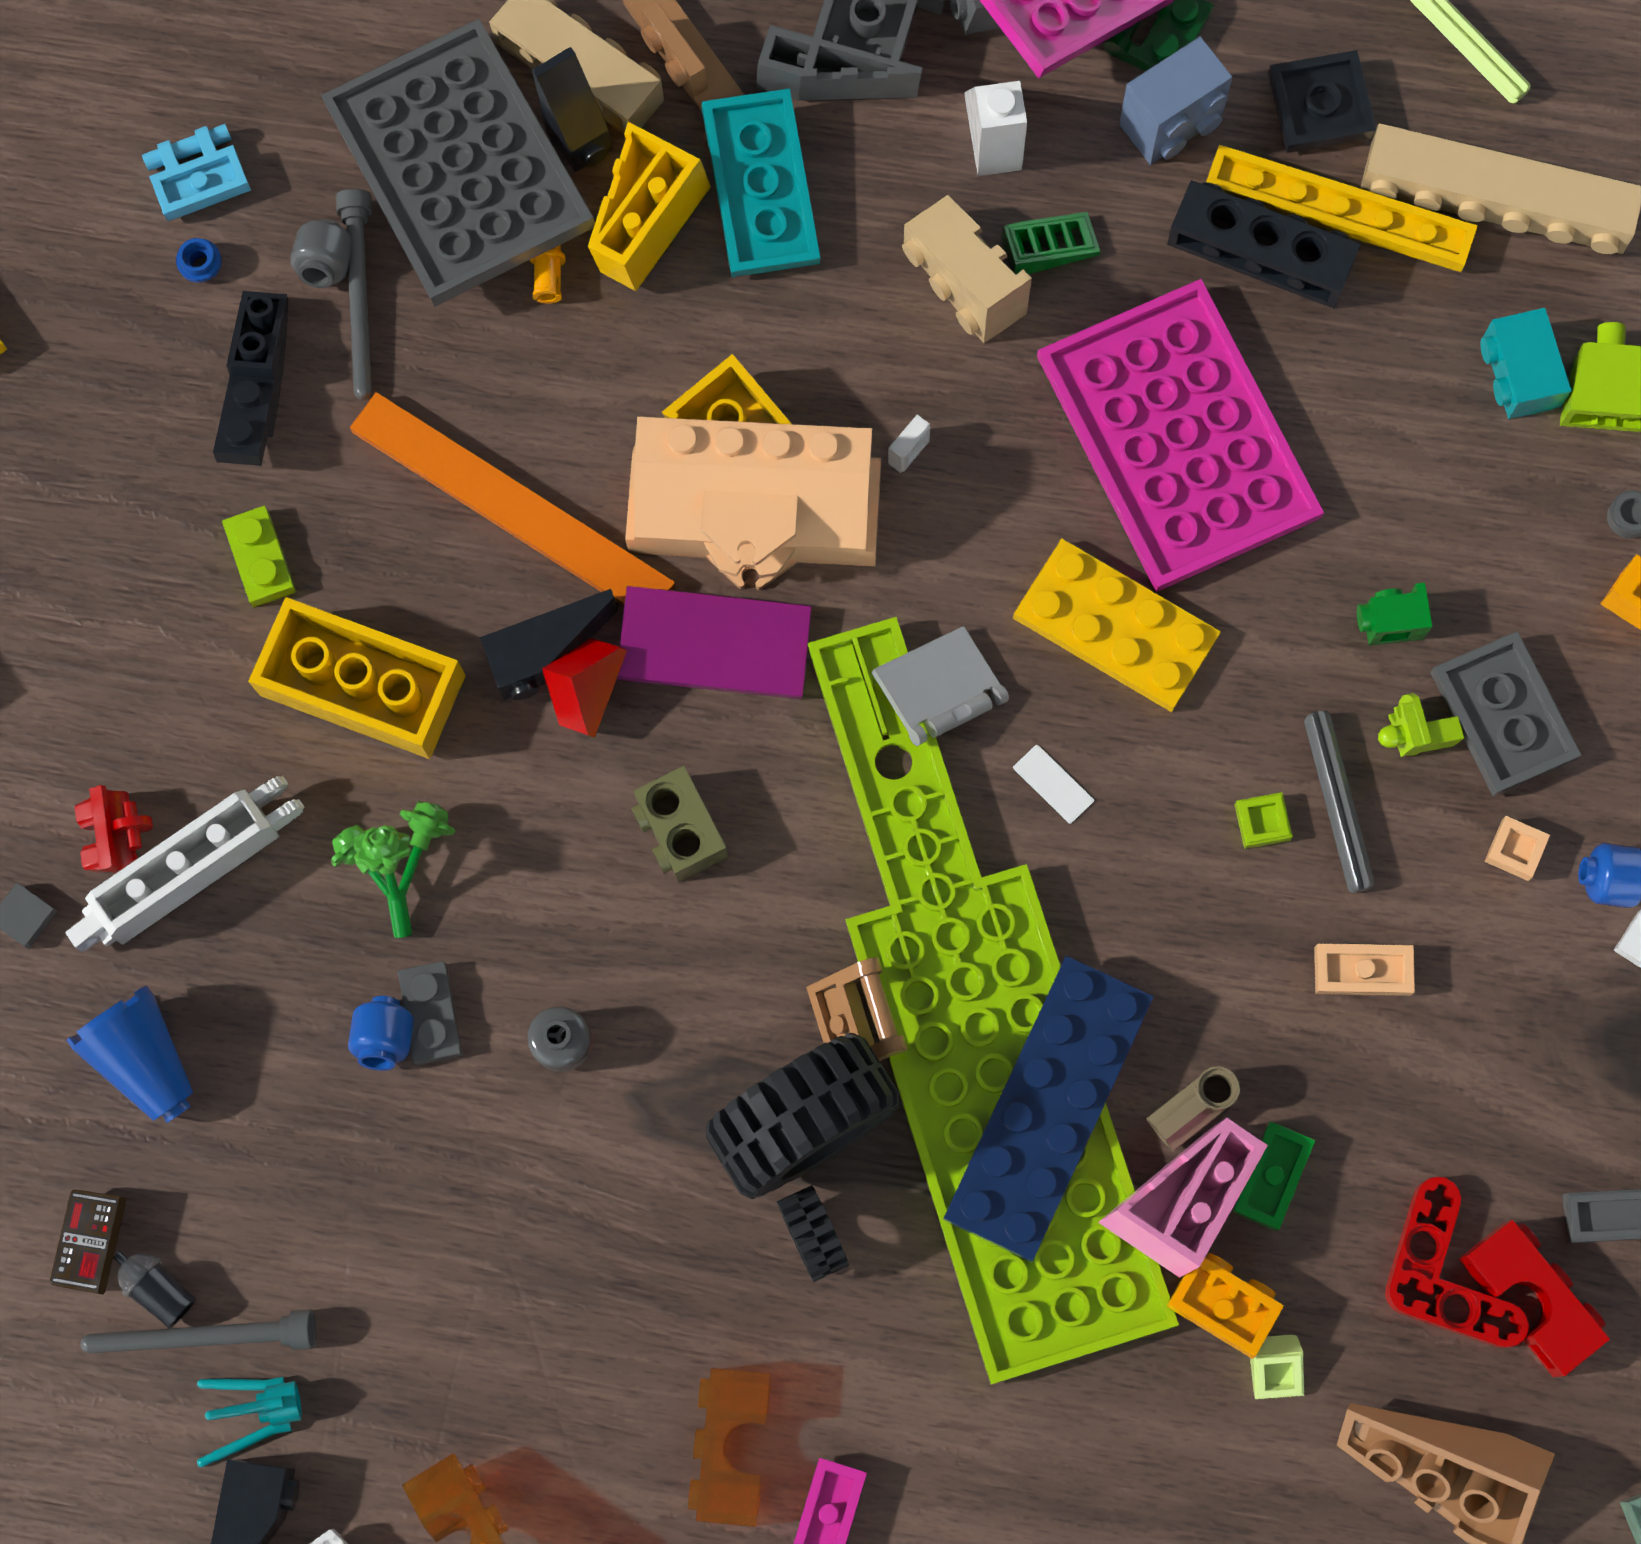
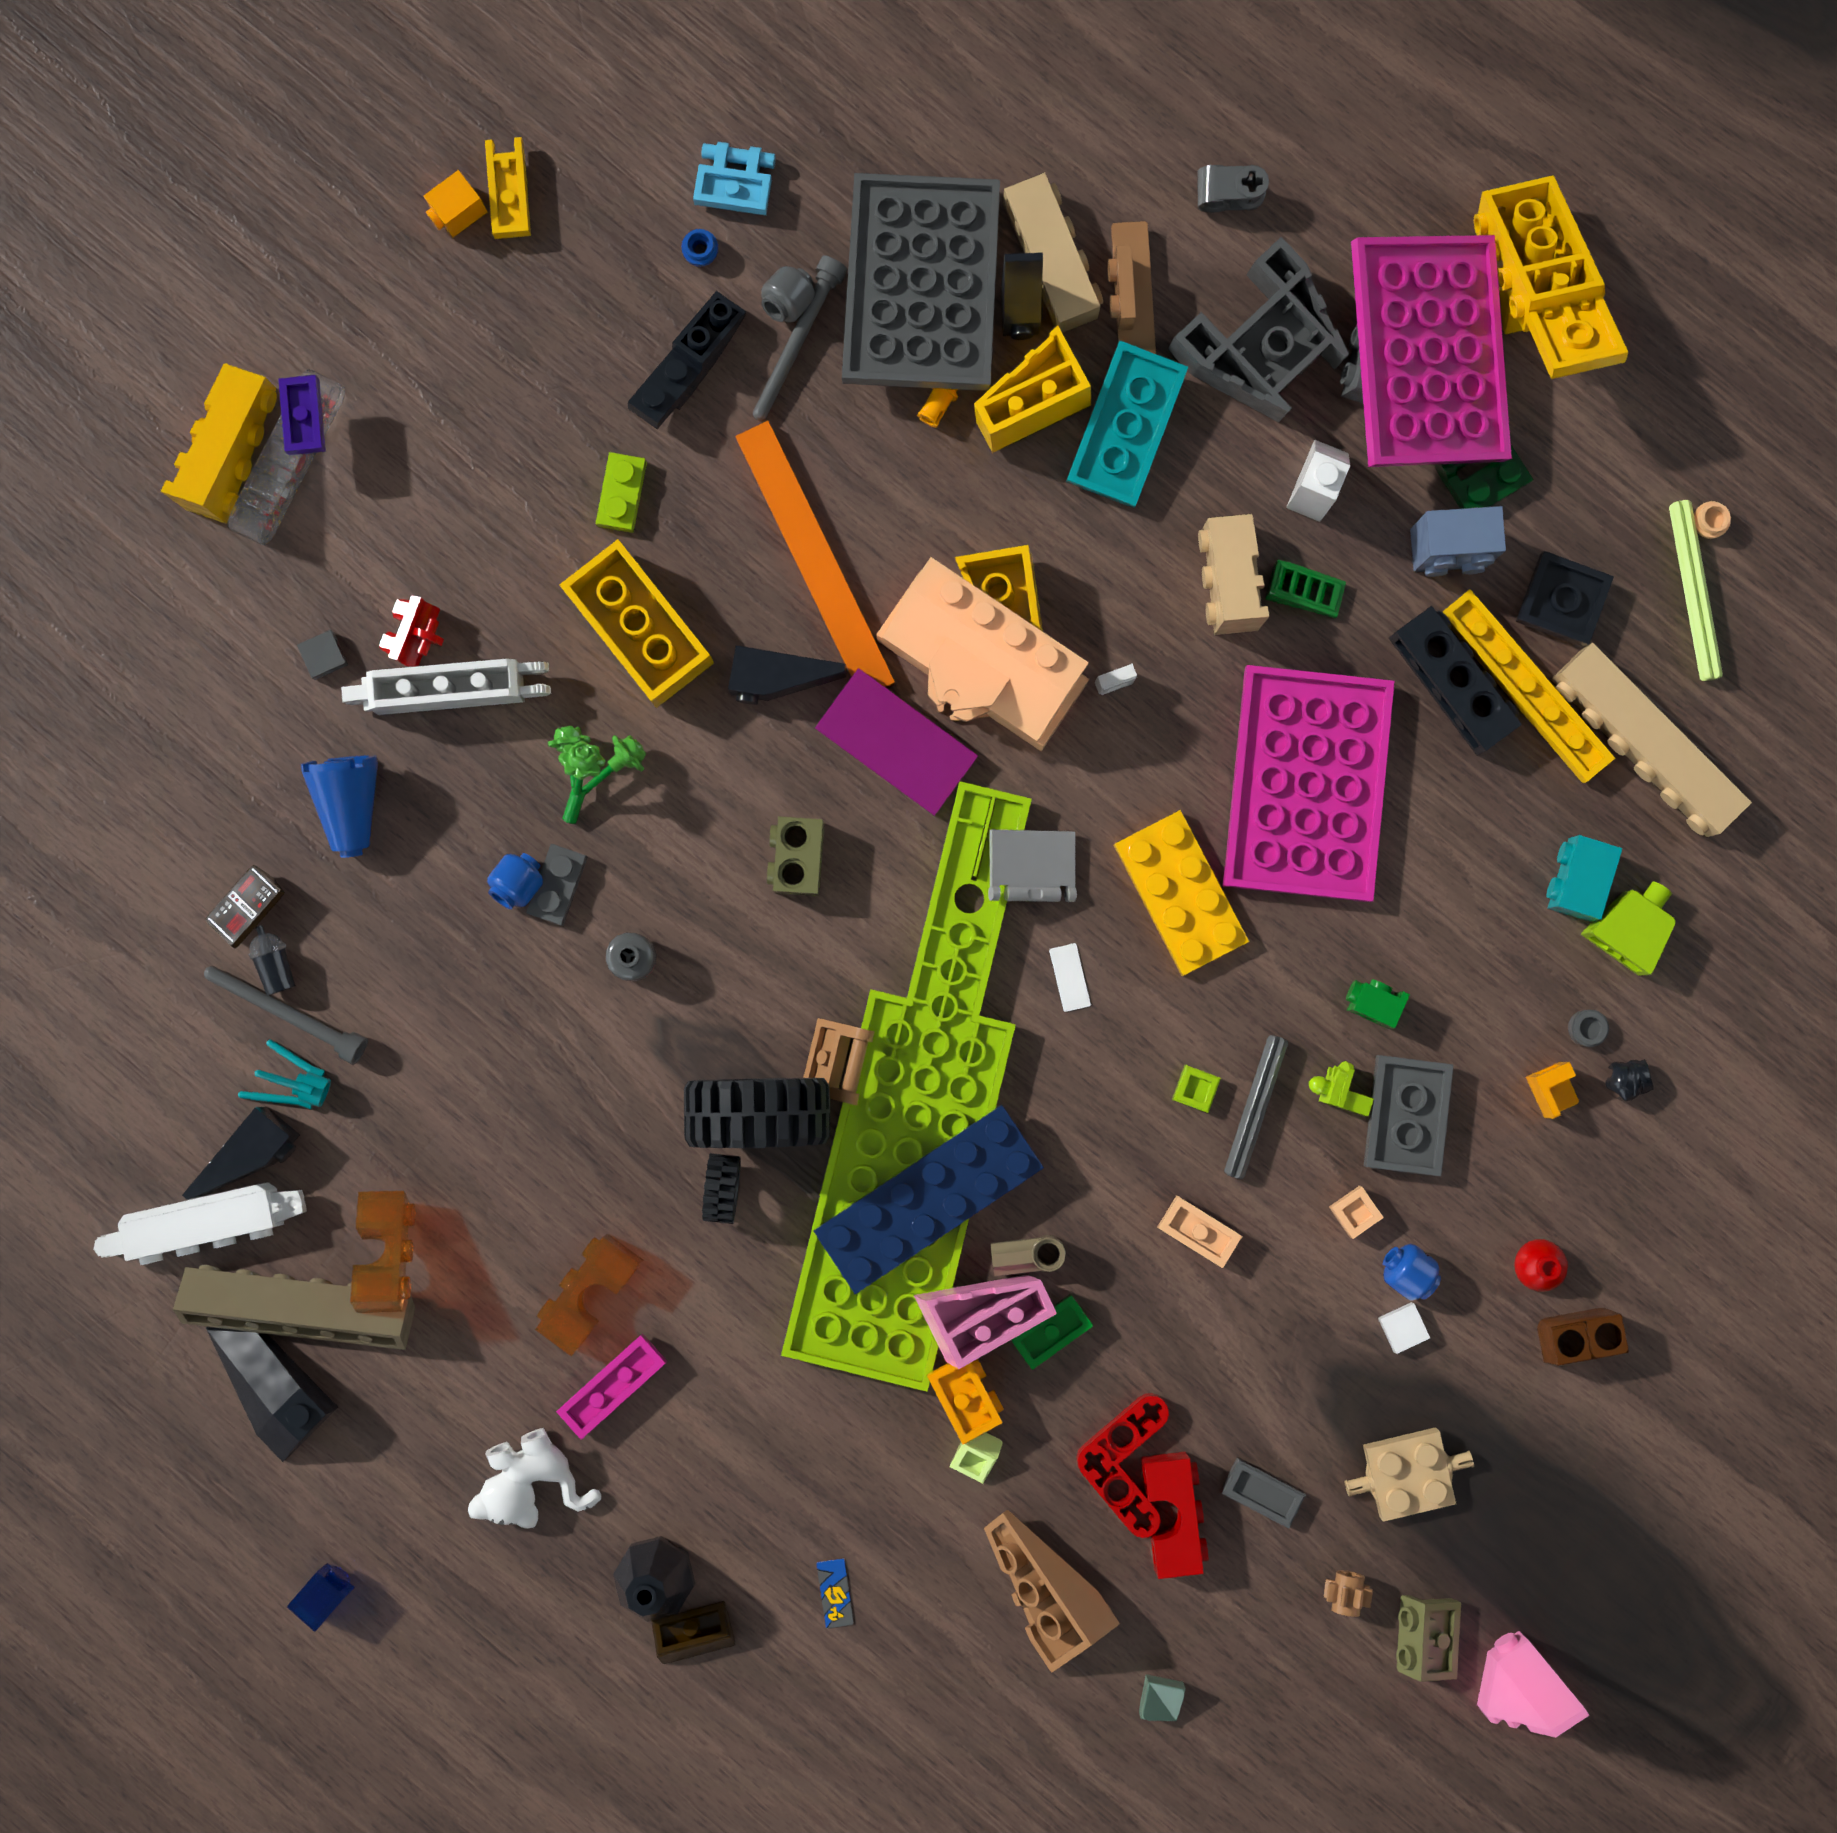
camera: 30 degrees right, 10 degrees up
(583, 684) = (789, 718): red slope -> none

